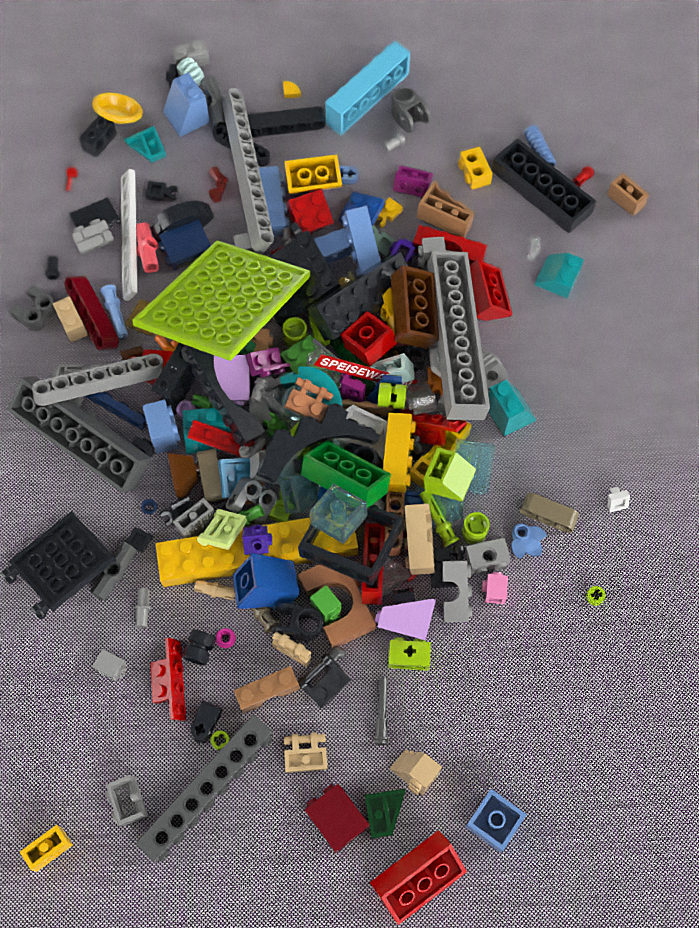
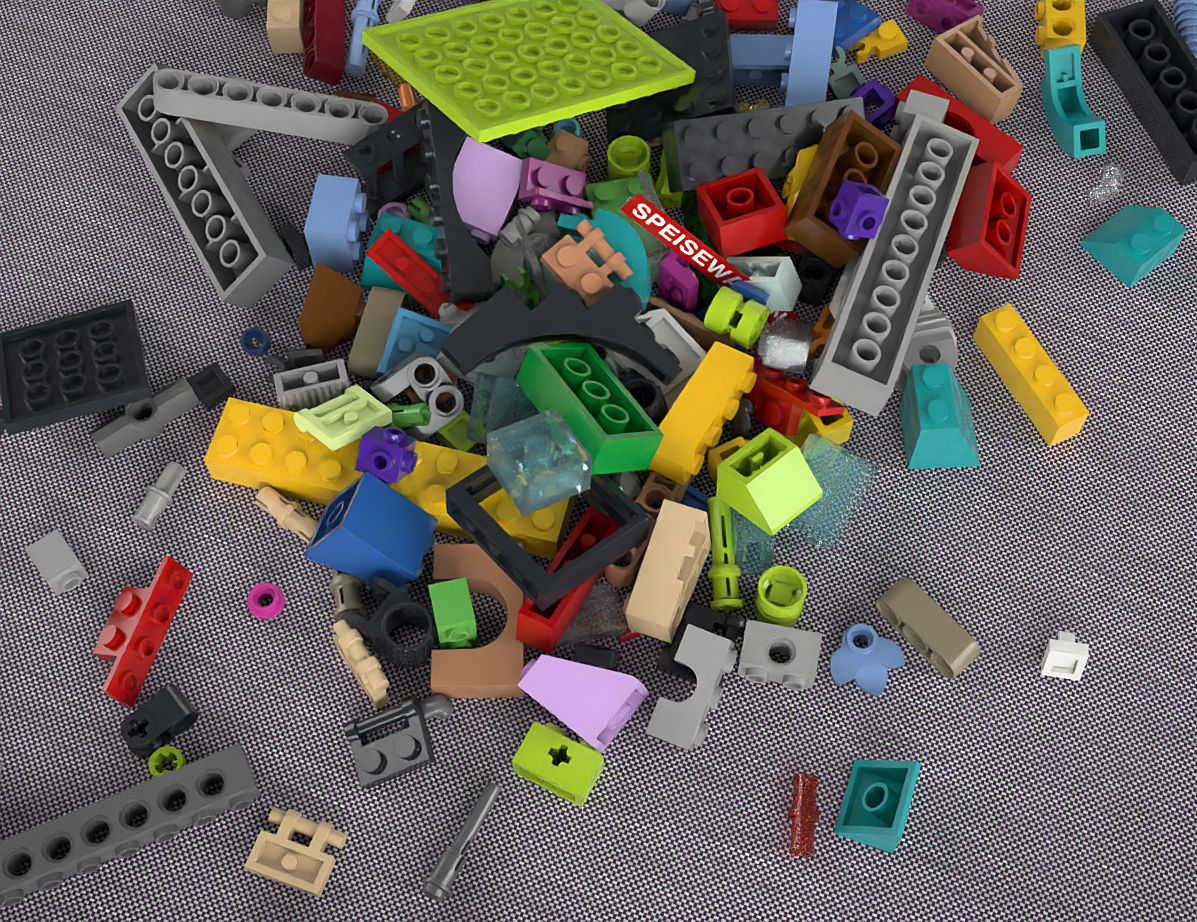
camera: 25 degrees right, 5 degrees down
(119, 409) = (287, 173): dark blue plate -> none
(199, 646) = (212, 595): black wheel -> none
(276, 684) = (309, 711): medium nougat arch -> none
(431, 318) = (858, 210): none -> dark purple brick
(495, 588) = (767, 715): bright pink brick -> none
(504, 221) = (1068, 115): none -> teal arch
(533, 628) = (803, 815): none -> clear red pin
(541, 364) = (1030, 374): none -> yellow brick
(565, 606) = (877, 802): none -> teal slope
(591, 599) = (939, 798): lime bush -> none

